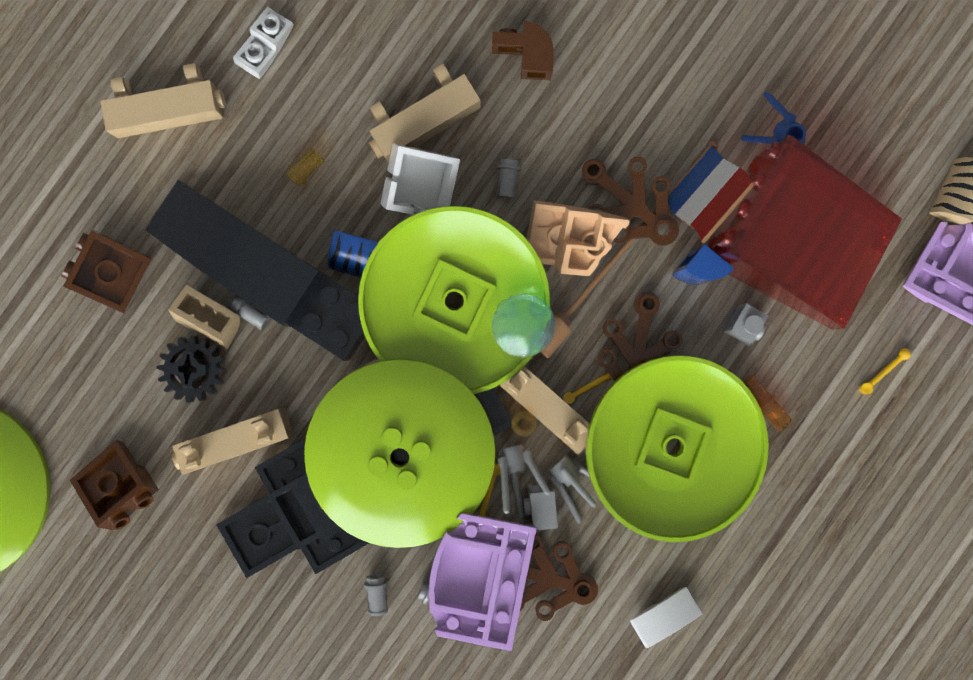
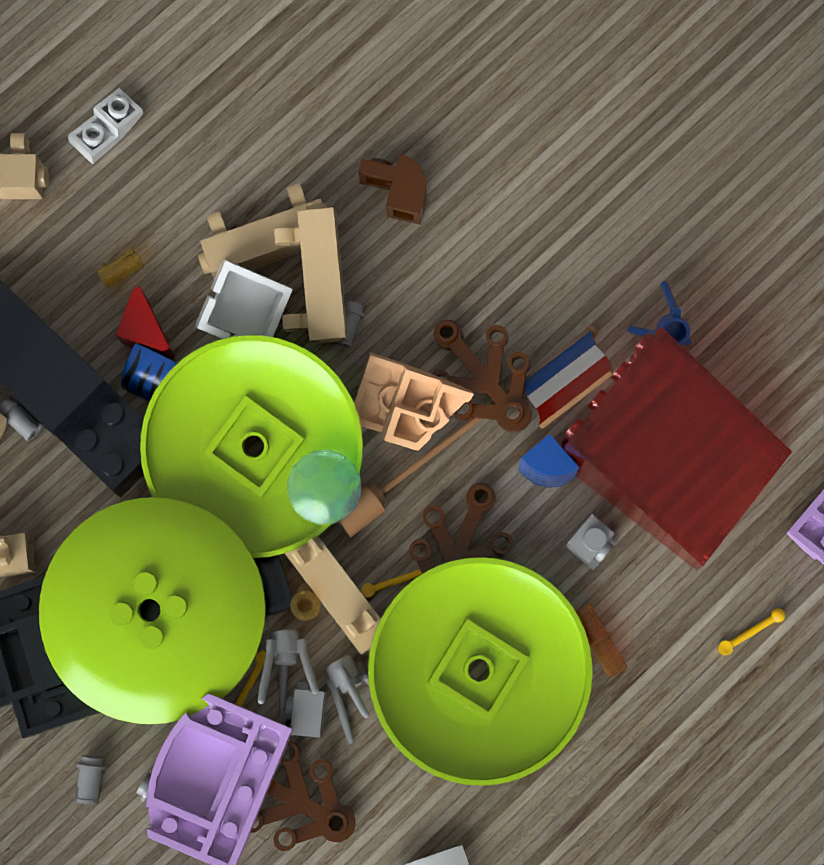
camera: 20 degrees right, 10 degrees down
(335, 215) = (141, 326): none -> red slope
(481, 139) = (321, 274): none -> tan brick

